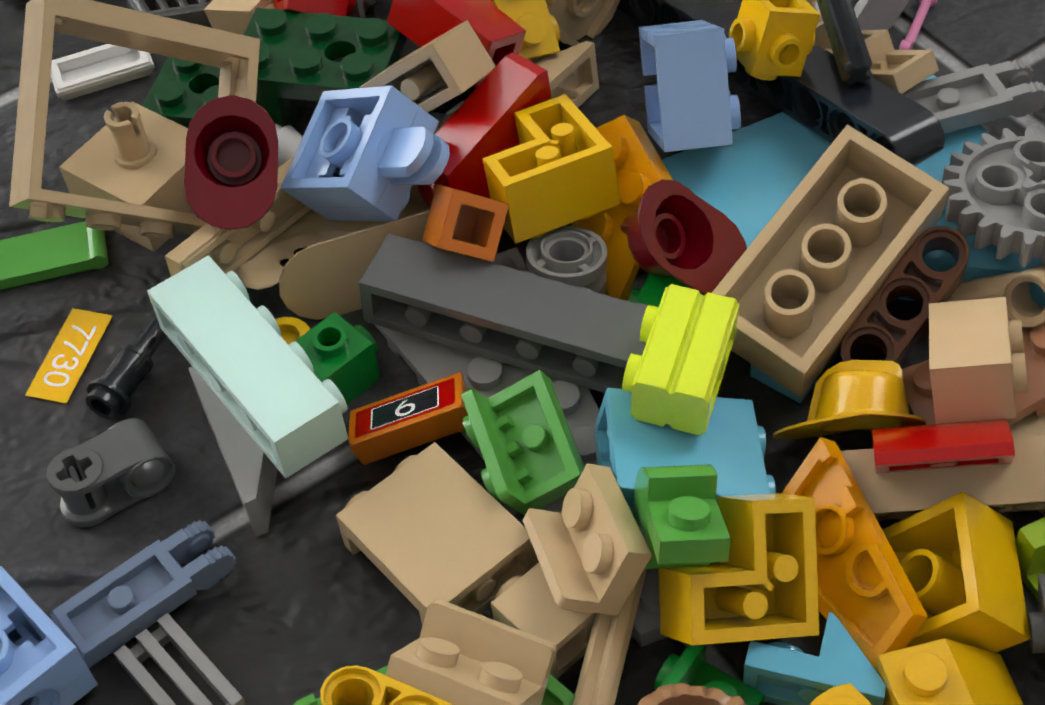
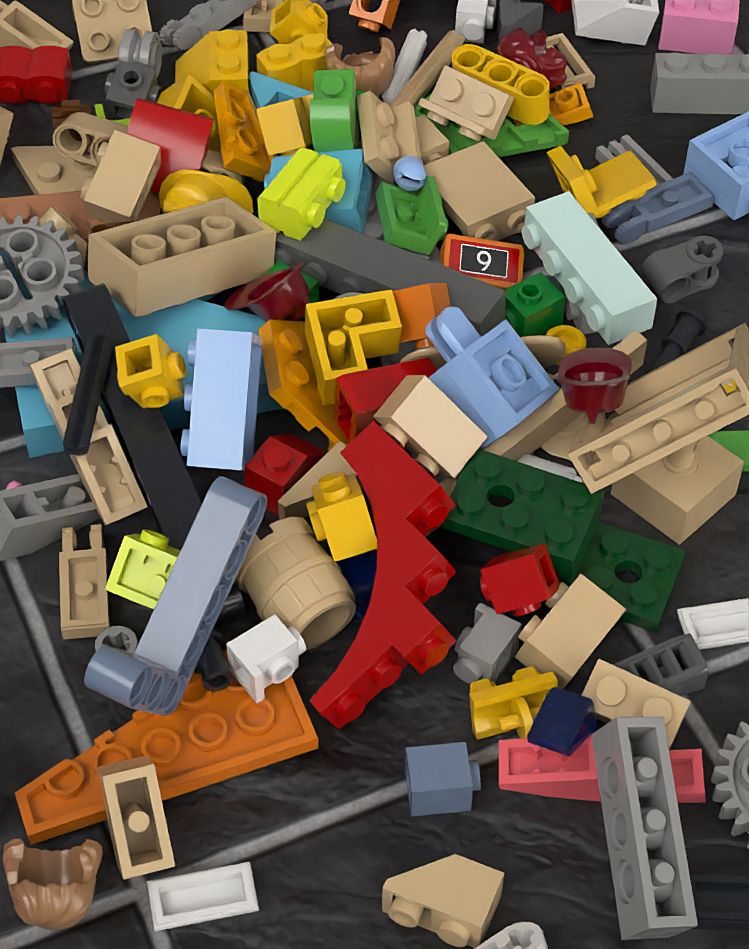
camera: 175 degrees left, 0 degrees up
(231, 579) = (604, 185): none -> yellow bracket
(536, 488) = (412, 168): none -> light blue hinge
(608, 84) = (280, 466): none -> red slope

